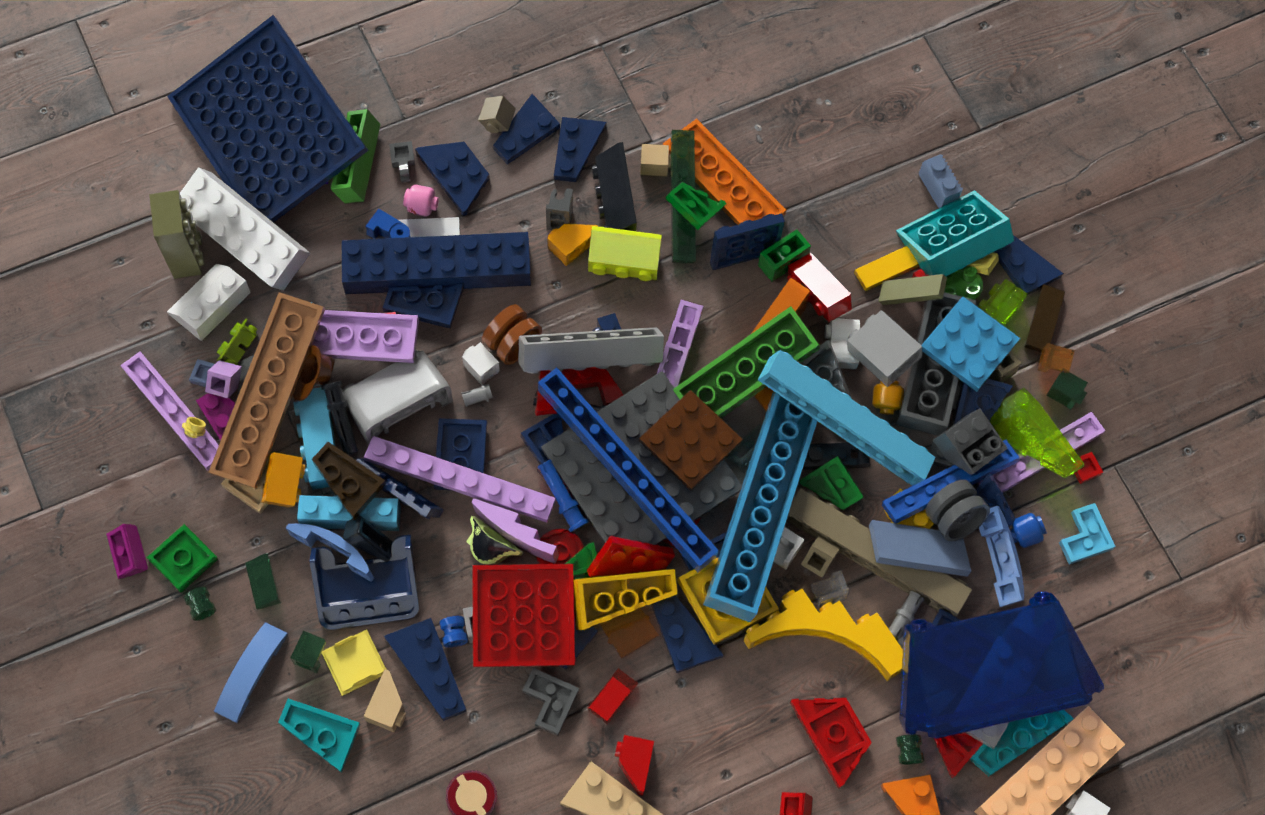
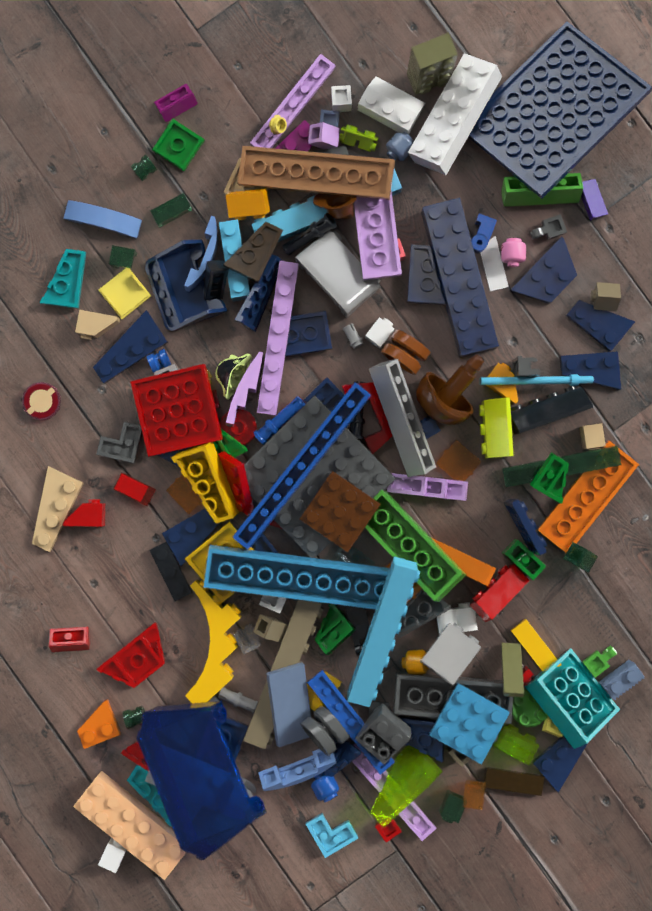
camera: 85 degrees right, 20 degrees up
(183, 351) = (341, 98): none -> white panel
(260, 297) = (399, 146): none -> sand blue head
(384, 110) = (593, 200): none -> slope
(579, 304) = (444, 399): none -> reddish brown piece
(584, 167) = (572, 380): none -> medium azure bar
(655, 308) = (458, 462): none -> clear orange piece
(727, 670) = (170, 571): none -> black plate
(792, 196) = (580, 557): none -> clear green brick
(915, 203) = (597, 662): none -> bright green plate

